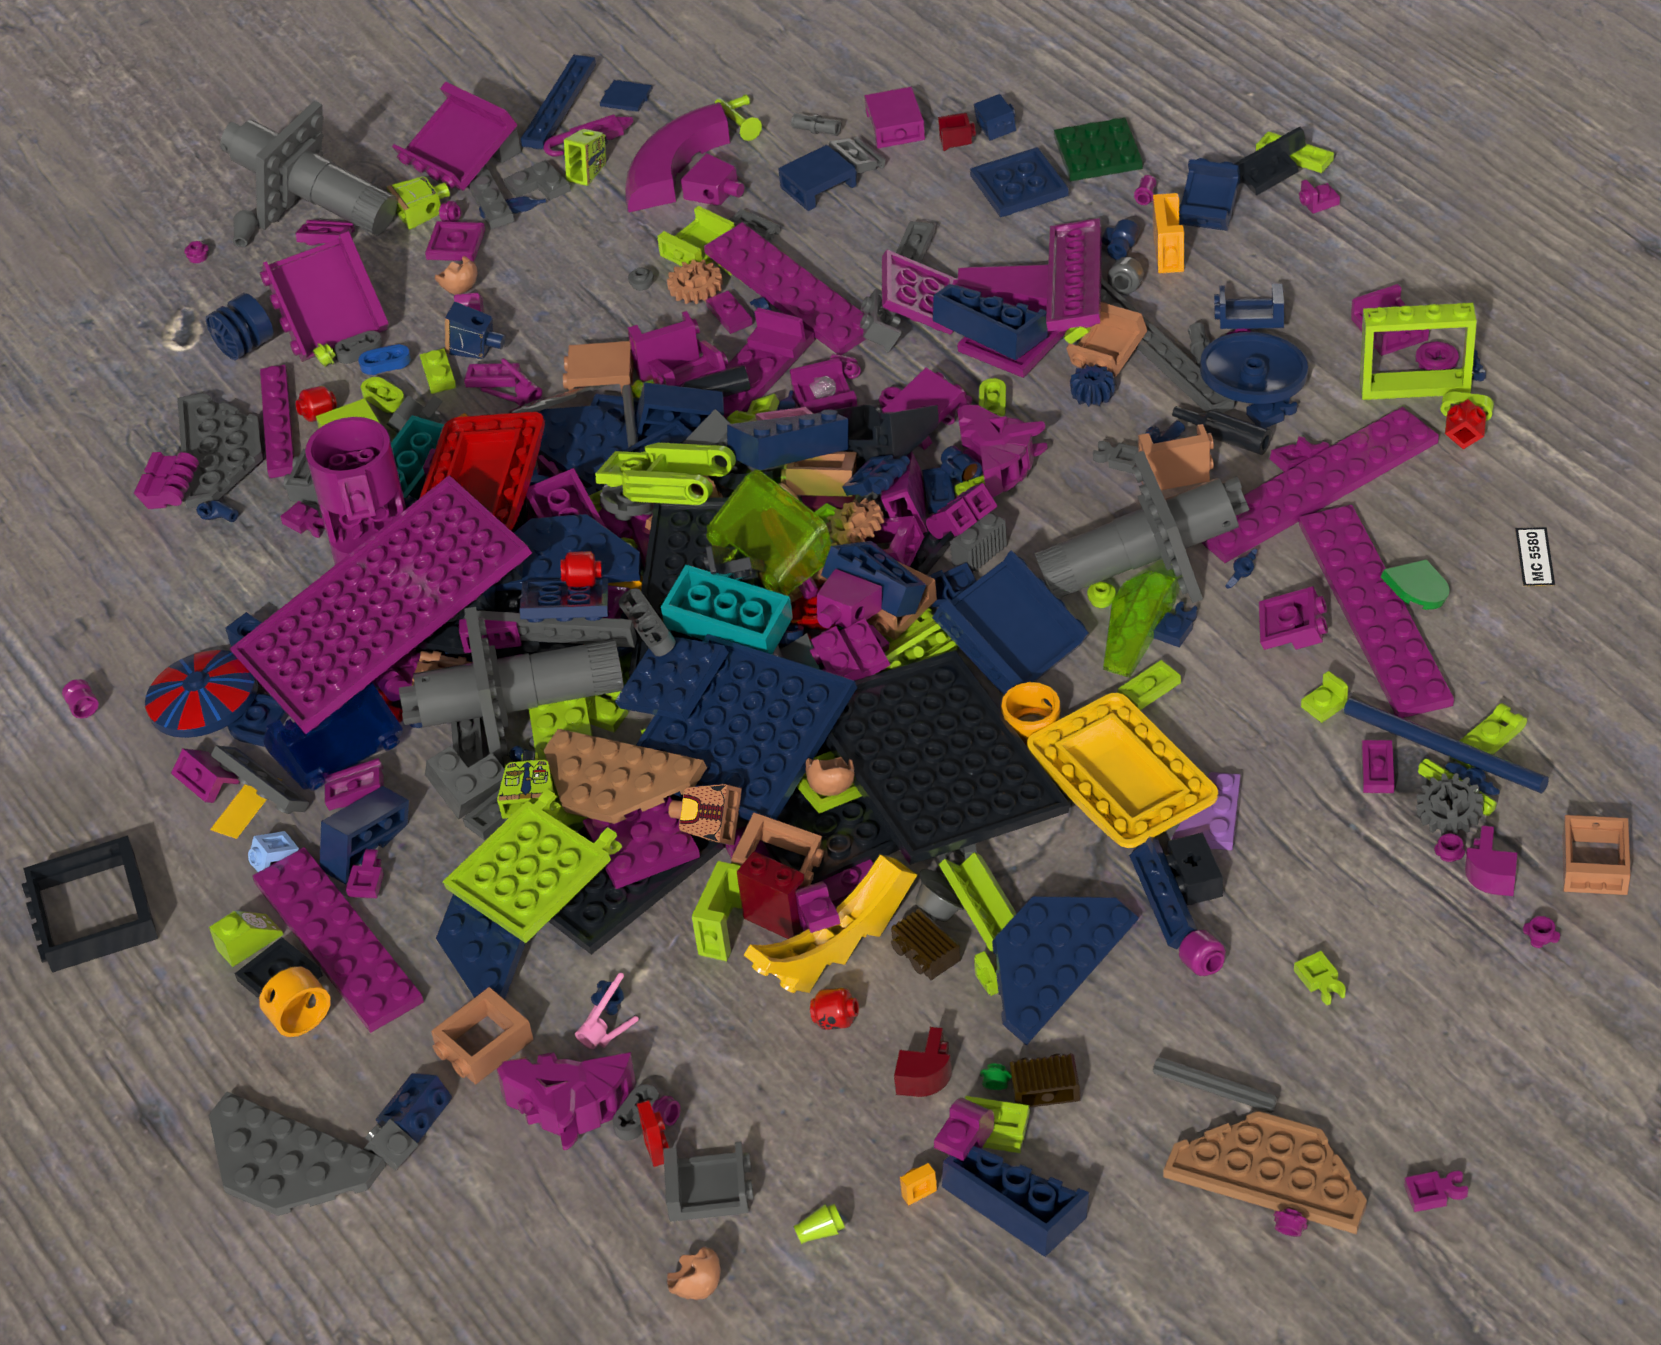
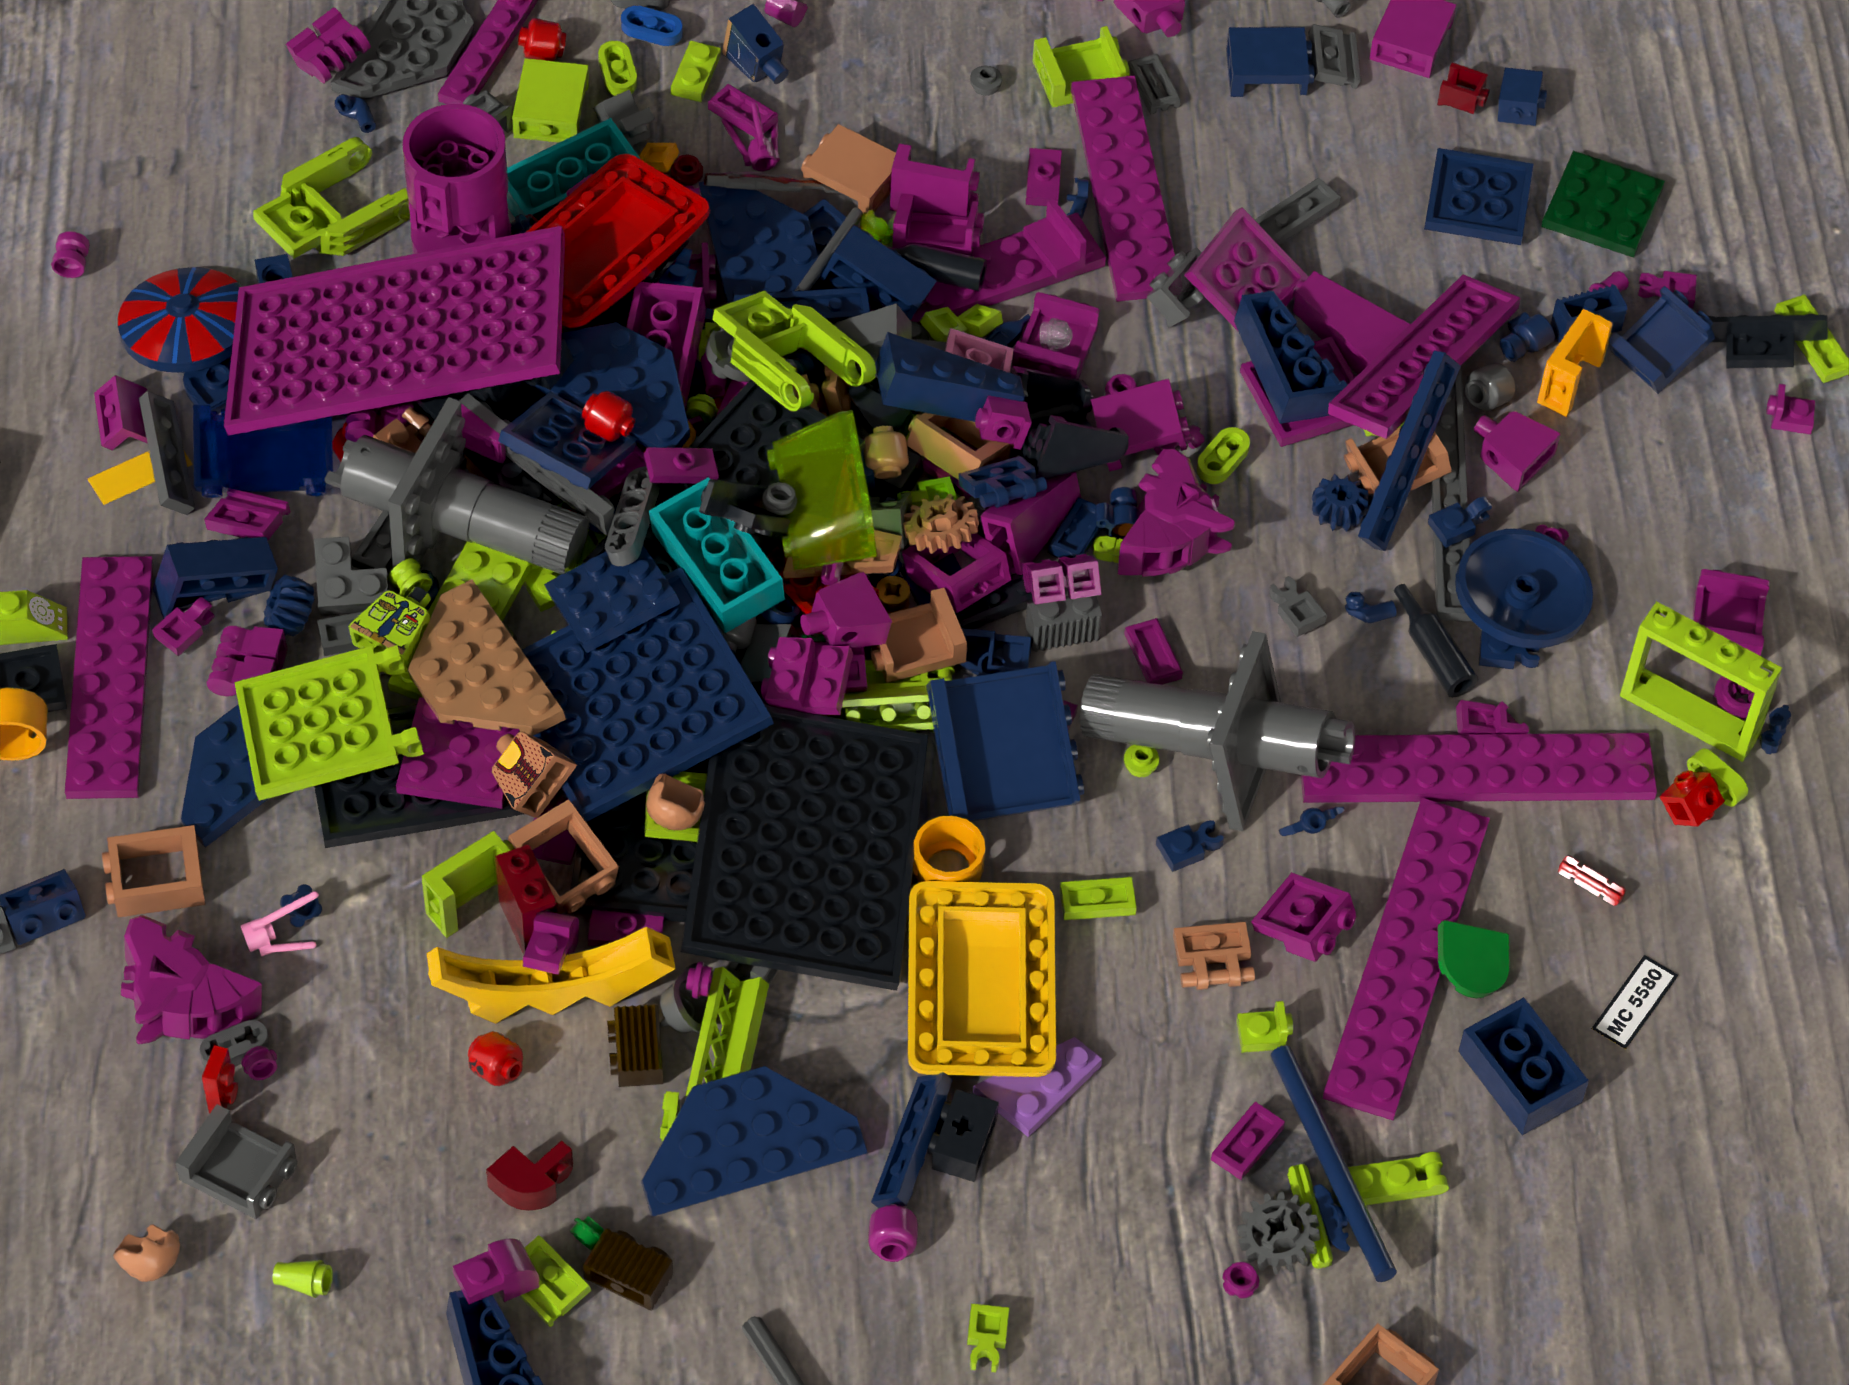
camera: 25 degrees right, 10 degrees up
(244, 588) = (305, 220): none -> lime plate
(270, 848) = (119, 539): light blue bracket -> none
(428, 868) = (245, 656): none -> magenta legs
(436, 818) = (289, 605): none -> dark blue gear
(510, 752) = (407, 576): none -> lime wheel
(652, 575) = (680, 465): none -> magenta plate
(694, 281) = (1034, 118): nougat gear -> none
(747, 548) = (779, 499): none -> dark grey plate
(845, 441) = (1004, 421): none -> magenta brick
(849, 366) = (1113, 318): magenta arm -> none
(866, 560) = (910, 598): dark blue wedge -> none
(918, 1183) = (424, 1296): light orange plate -> none
(938, 874) = (699, 980): none -> magenta plate
(1047, 529) = (1153, 652): none -> magenta tile
(1115, 318) = (1409, 450): none -> dark blue plate
(1133, 618) = (1155, 806): clear neon green wedge -> none
(1141, 207) = (1604, 302): none -> dark blue brick
(1171, 299) = (1516, 447): none -> magenta torso
(1178, 170) = (1673, 281): none -> magenta plate
(1178, 356) = (1456, 523): none -> dark blue plate
(1179, 460) = (1341, 654): nougat panel -> none
(1198, 341) = (1502, 514): dark grey pin -> none
(1248, 670) = (1213, 945): none -> nougat plate
(1250, 312) = (1585, 514): dark blue panel -> none
(1445, 504) = (1591, 880): none -> axle
(1490, 869) = (1256, 1328): magenta brick -> none
(1509, 623) = (1523, 1066): none -> dark blue brick

